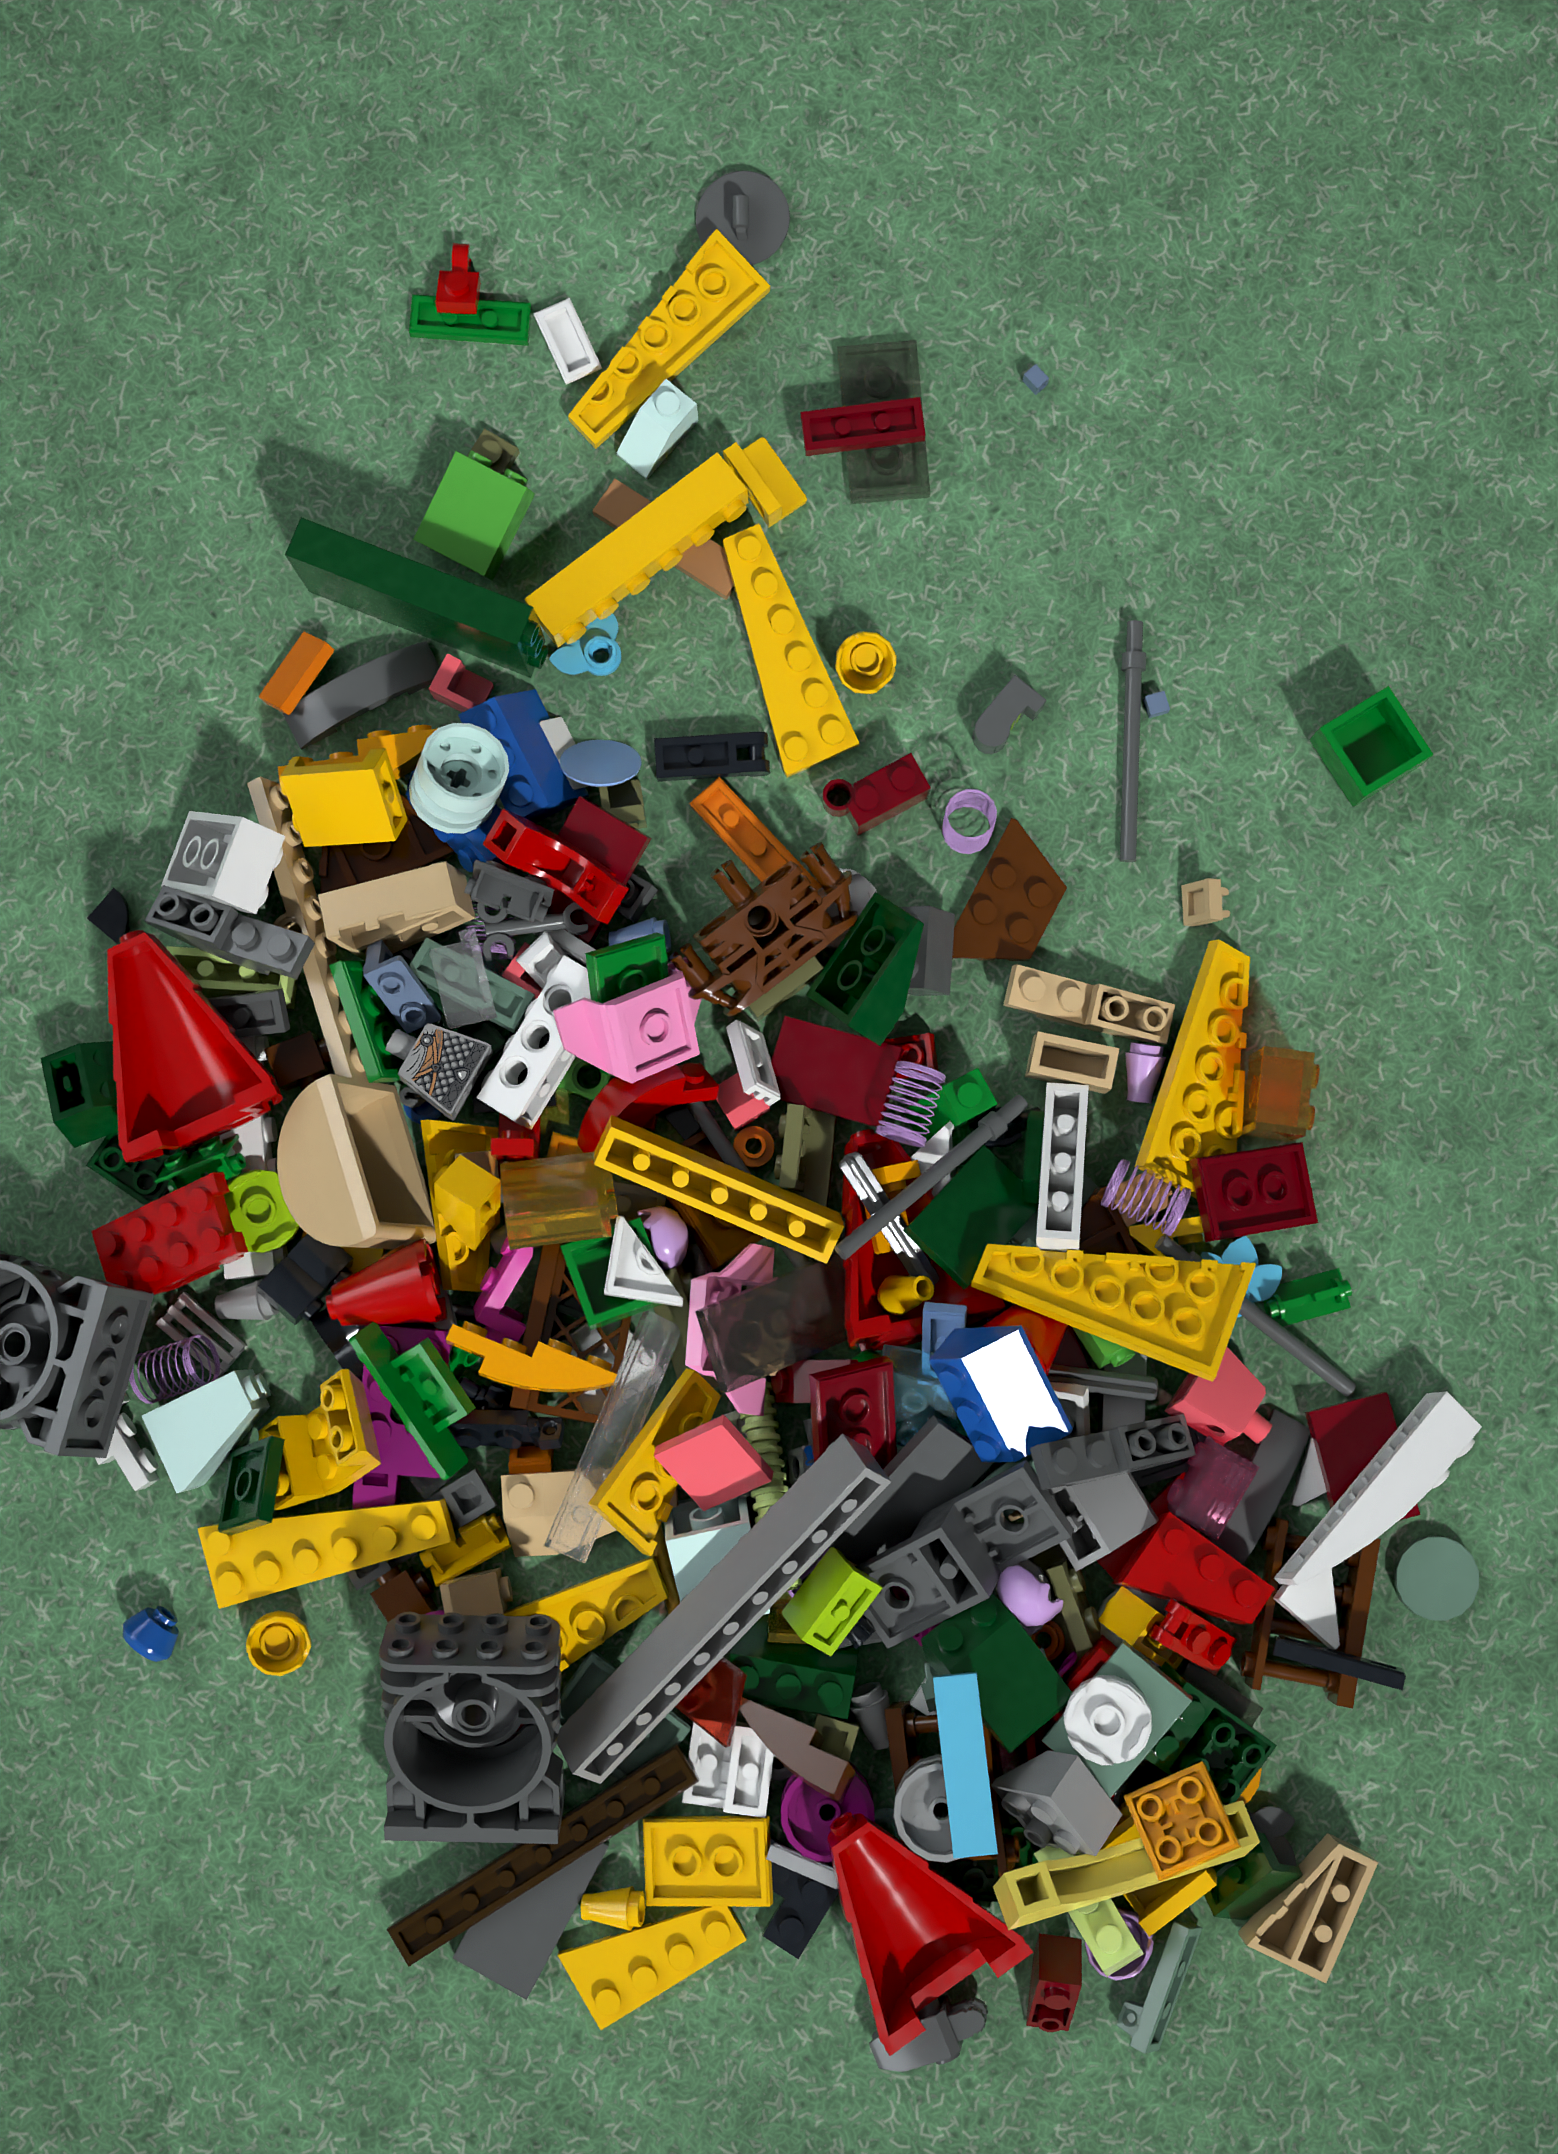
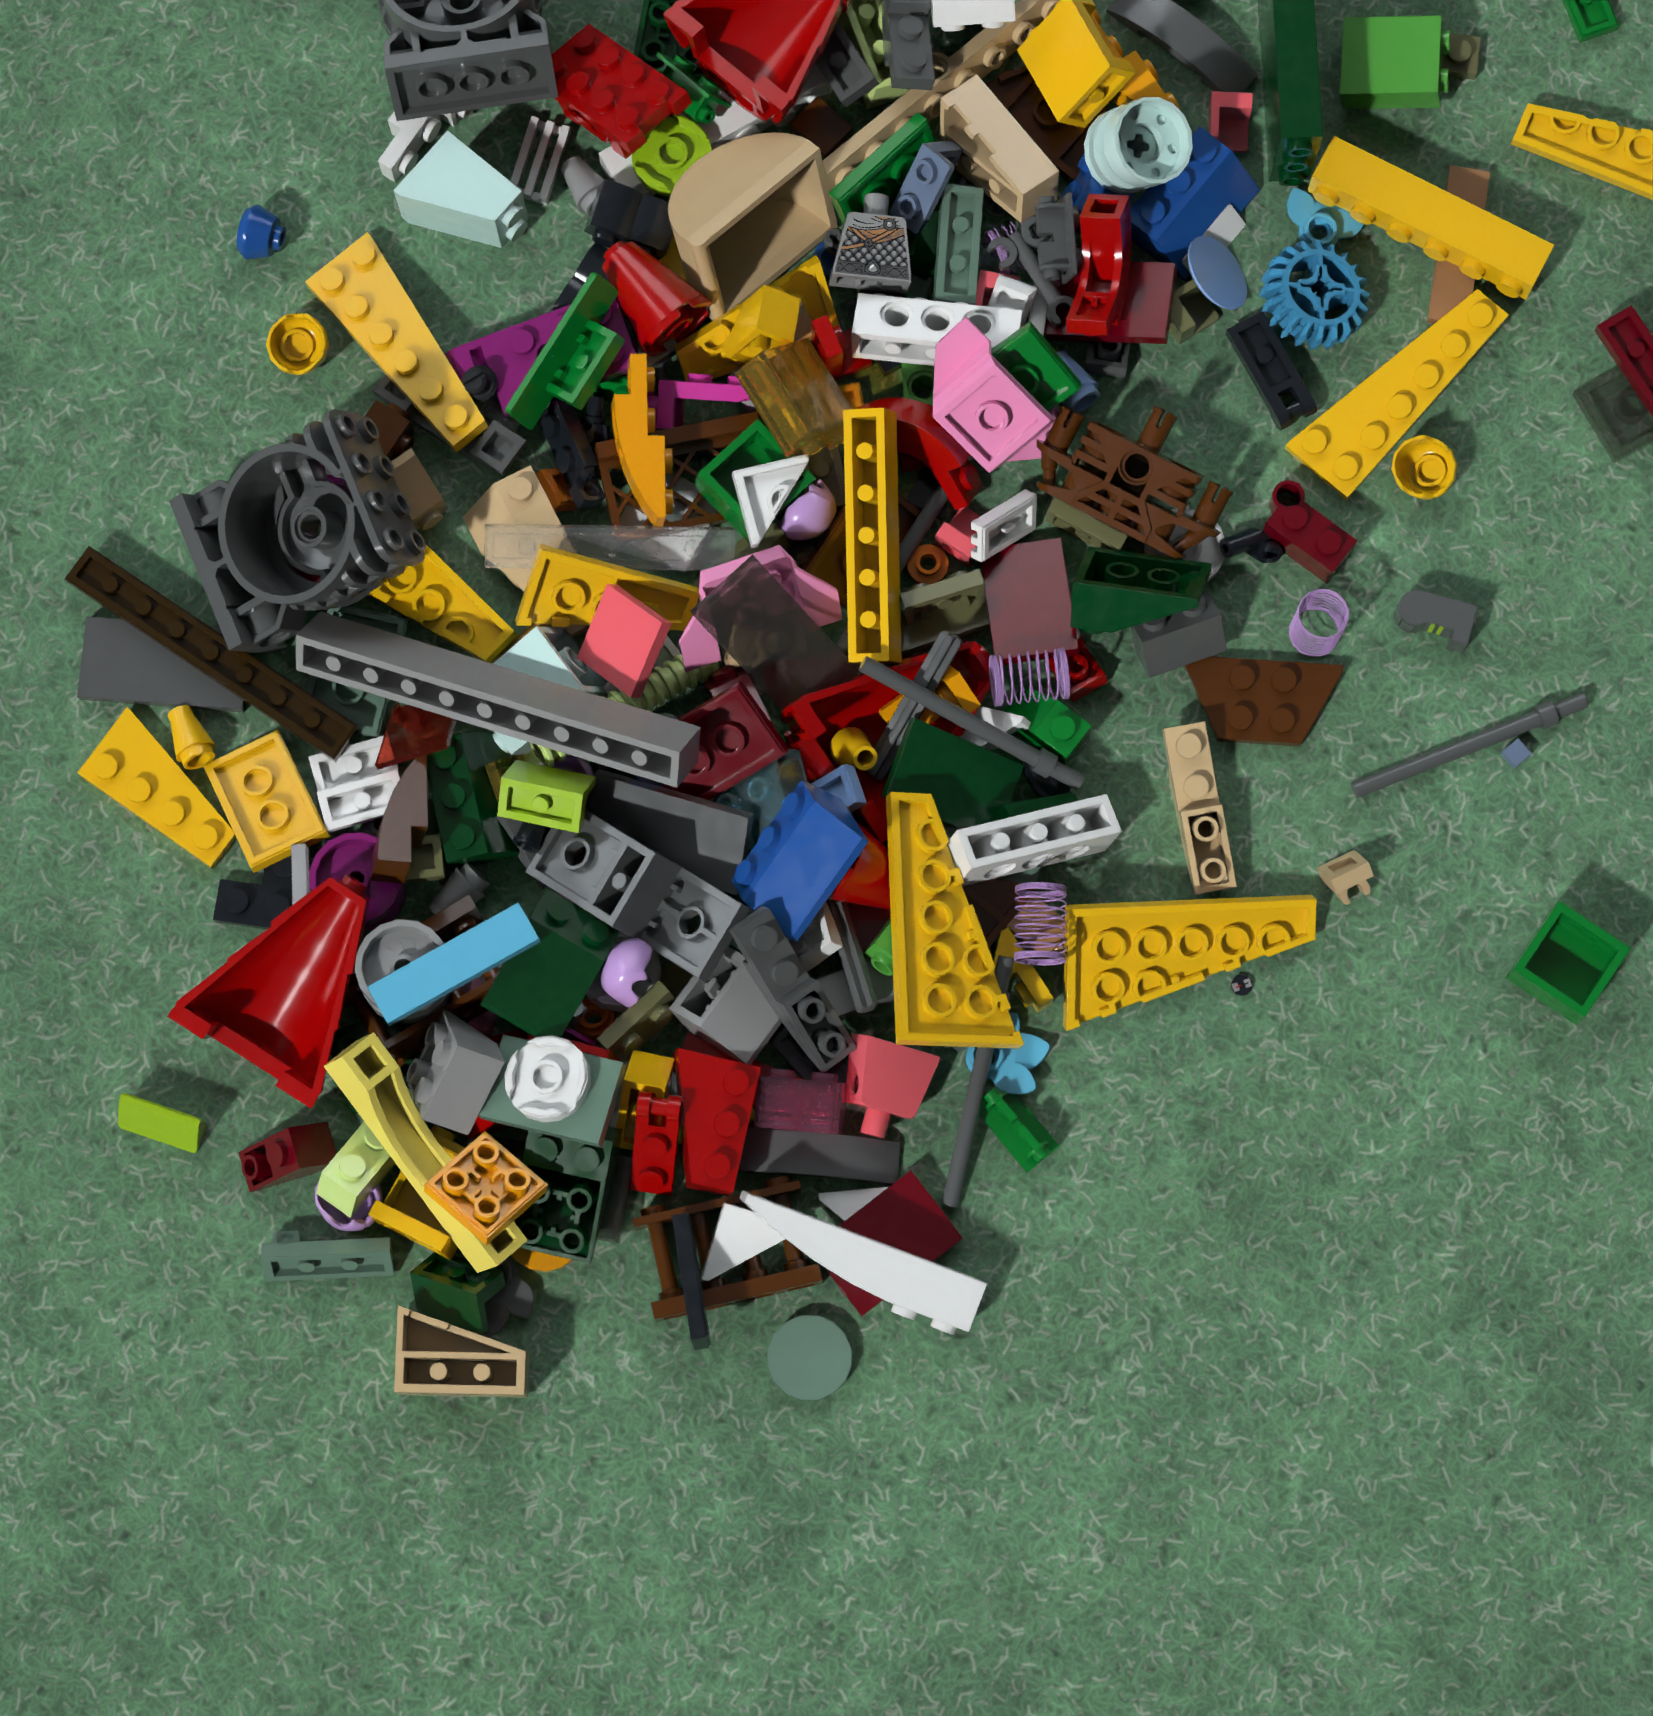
camera: 65 degrees right, 5 degrees down
(186, 1363) = (493, 138): lavender piece -> none
(251, 1486) = (426, 255): dark green tile -> none
(327, 1445) = (481, 304): yellow slope -> none
(399, 1489) = (480, 383): none -> black piece
(463, 981) = (958, 235): clear panel -> none
(477, 1543) = (465, 478): yellow hinge -> none
(567, 341) = (1599, 74): white tile -> none
(658, 428) = (1555, 188): light aqua slope -> none
(669, 705) = (1302, 304): none -> dark azure gear
(743, 832) = (1214, 431): orange tile -> none
(766, 479) = (1555, 306): yellow panel -> none
(865, 845) = (1253, 543): none -> black arm
(944, 2034) = (199, 1063): dark grey hinge -> none
(968, 2088) = (160, 1123): none -> lime slope
(1072, 1062) = (1138, 812): tan brick -> none
(1143, 1069) = (1162, 884): lavender cone -> none
(1253, 1191) = (1093, 1031): dark red tile -> none
(1260, 1039) = (1241, 985): none -> black piece
(1279, 1094) = (1194, 1012): clear orange brick -> none

